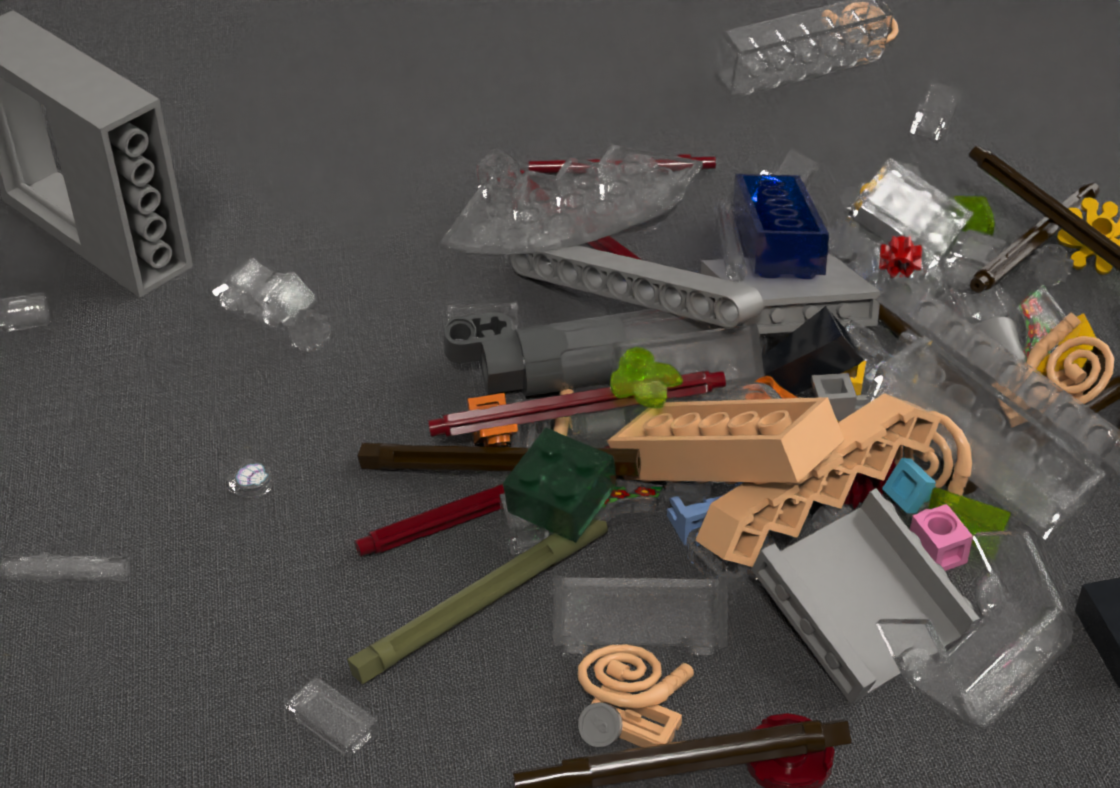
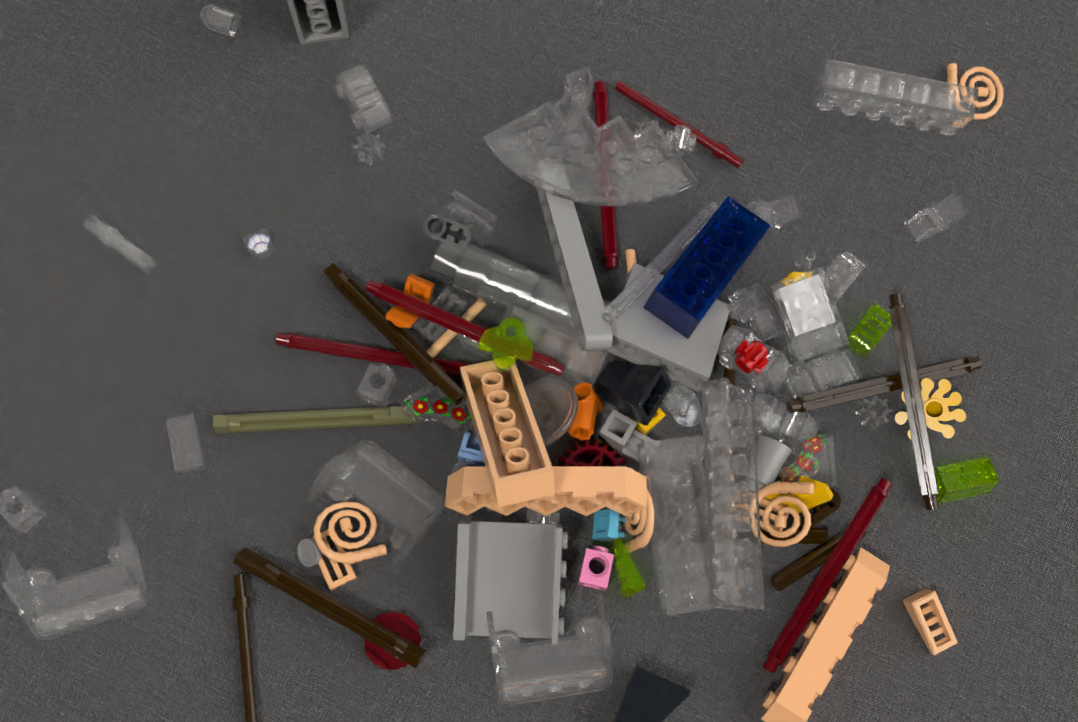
camera: 30 degrees right, 30 degrees up
(560, 484) = (394, 389): clear green brick -> none

